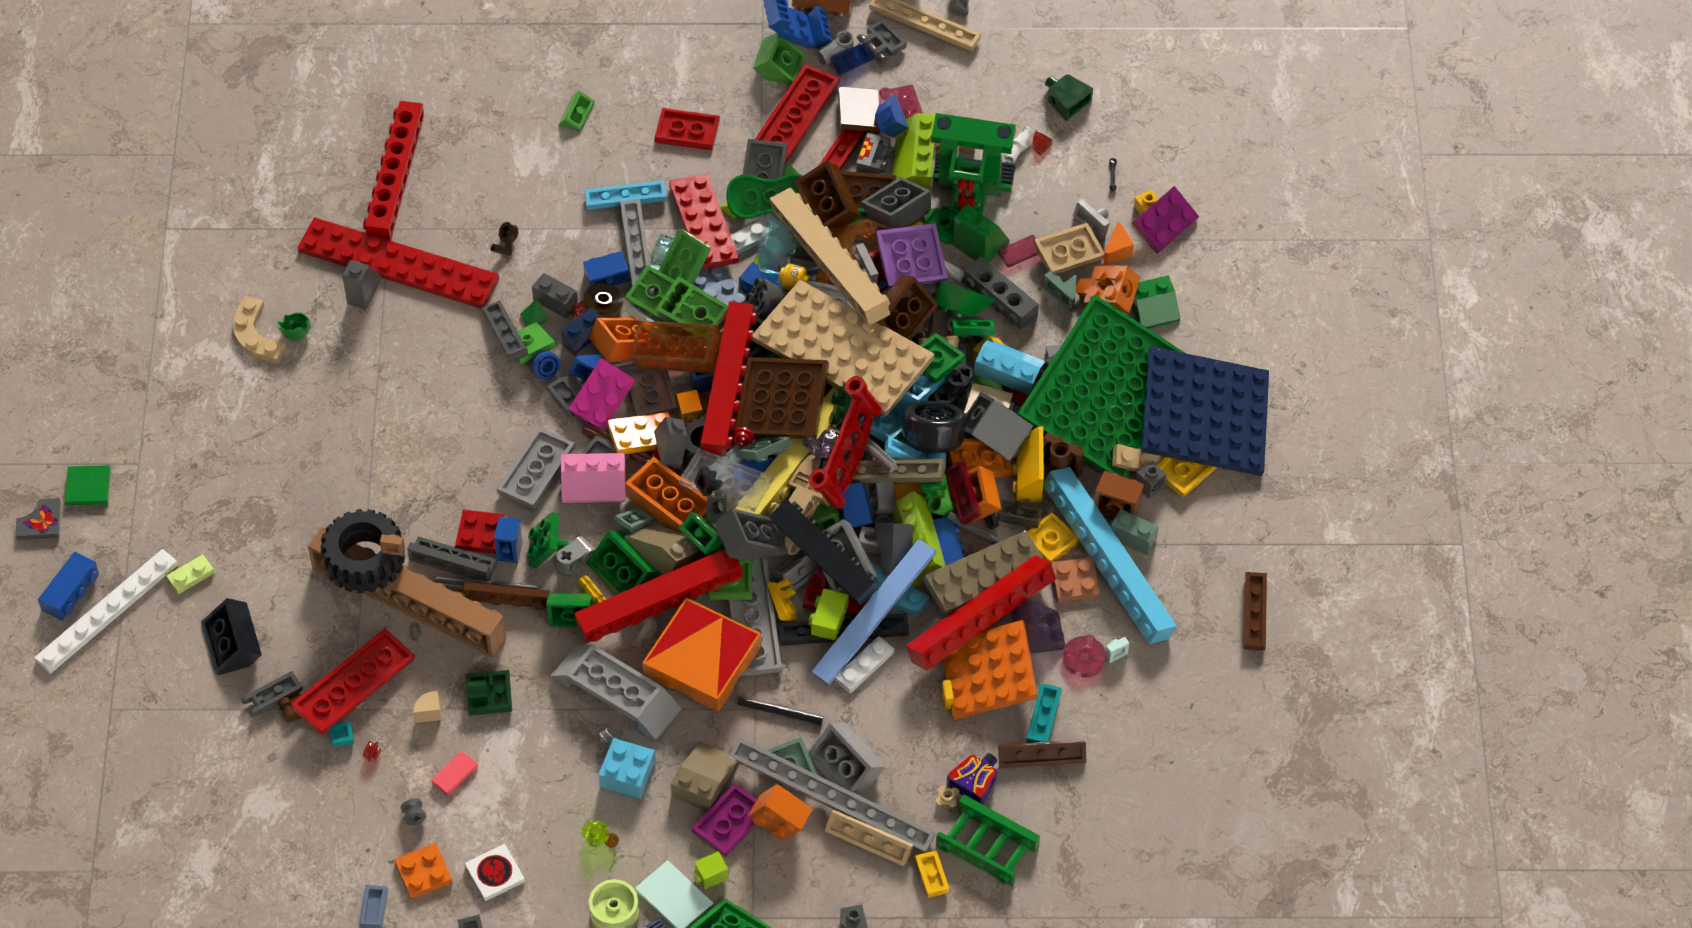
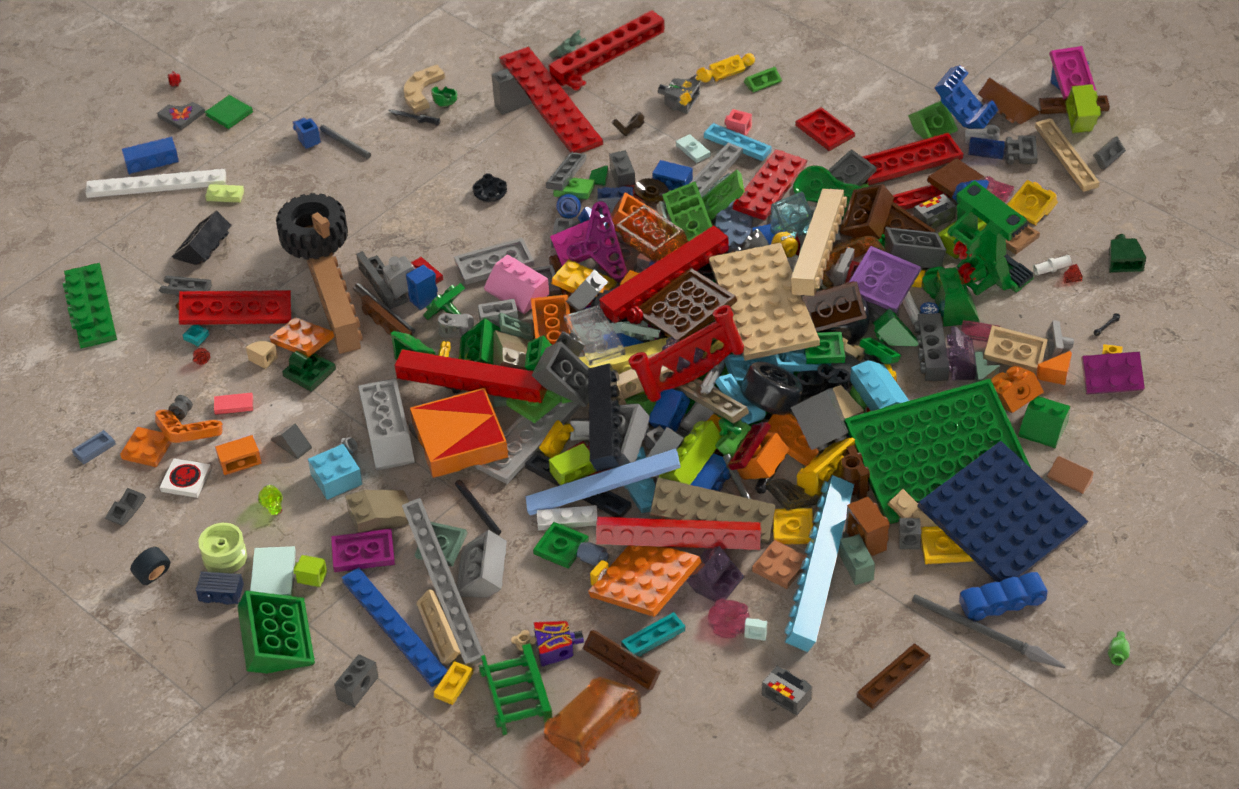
camera: 45 degrees right, 10 degrees down
(197, 778) = (89, 305): none -> green plate
(205, 456) = (307, 132): none -> blue brick
(247, 439) = (345, 141): none -> dark grey bar
(293, 364) = (421, 118): none -> black sword
(353, 192) = (568, 45): none -> sand green plate
(403, 228) = (575, 82): none -> red plate
(413, 833) = (177, 433): none -> orange beam
(447, 396) = (489, 188): none -> black dish
(447, 665) = (301, 337): none -> orange plate
(481, 542) = (396, 273): none -> light grey torso
(520, 816) = (238, 455): none -> orange brick
(521, 174) = (683, 93): none -> dark grey torso
(531, 119) = (729, 67): none -> yellow plate
(549, 768) = (292, 441): none -> dark grey slope
(589, 228) = (693, 148): none -> light aqua plate
(603, 518) = (491, 310): none -> light grey brick
(606, 173) = (739, 122): none -> coral brick
(638, 391) = (599, 236): none -> magenta beam
(707, 481) = (577, 324): black tile -> none
(780, 812) = (390, 563): orange brick -> none
(828, 864) = (395, 627): none -> blue plate
(888, 692) = (560, 545): none -> green plate
(923, 681) = (592, 553): none -> sand blue brick
(945, 91) = (1033, 201): none -> yellow plate
(961, 258) = (929, 307): none -> blue tile
(1035, 285) = (961, 355): none -> clear purple slope
(1074, 818) = (590, 717): none -> clear orange windscreen
(1191, 683) = (787, 690): none -> brick
(1217, 337) = (1070, 474): none -> nougat slope
(1270, 483) = (1001, 596): none -> blue brick
(1335, 515) = (1033, 652): none -> dark grey piece
(1390, 465) = (1119, 649): none -> bright green plant

